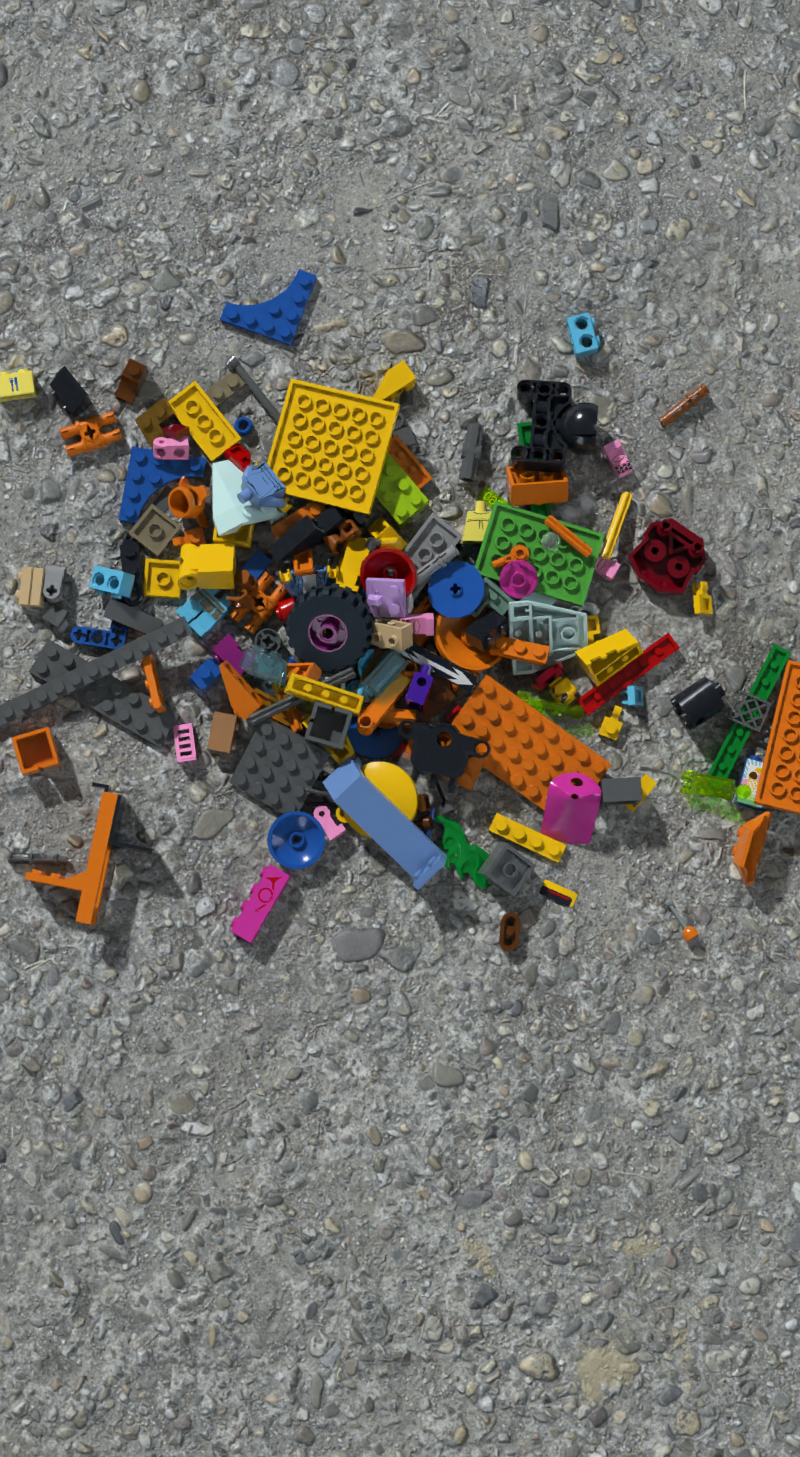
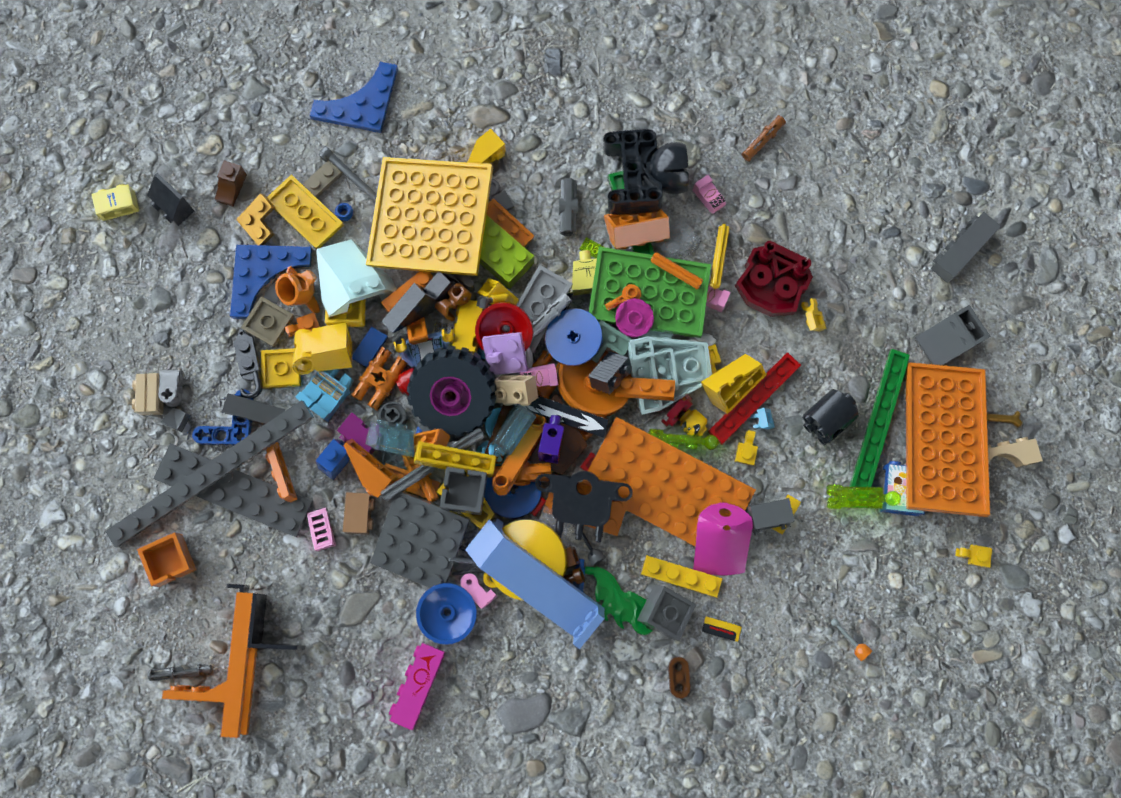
camera: 15 degrees left, 5 degrees down
(82, 429) = (186, 233): orange pin -> none
(111, 581) = (227, 376): medium azure brick -> none
(171, 448) = (274, 240): bright pink leg -> none
(176, 430) = (277, 223): dark red tile -> none
(238, 456) = (342, 240): red tile -> none
(246, 584) = (363, 360): dark orange leg -> none
(263, 488) = (368, 263): medium blue torso -> none
(550, 541) = (660, 277): clear plate -> none
(577, 335) = (654, 87): medium azure brick -> none
(750, 846) = (908, 551): orange wedge -> none
(754, 698) = (878, 430): dark grey window -> none

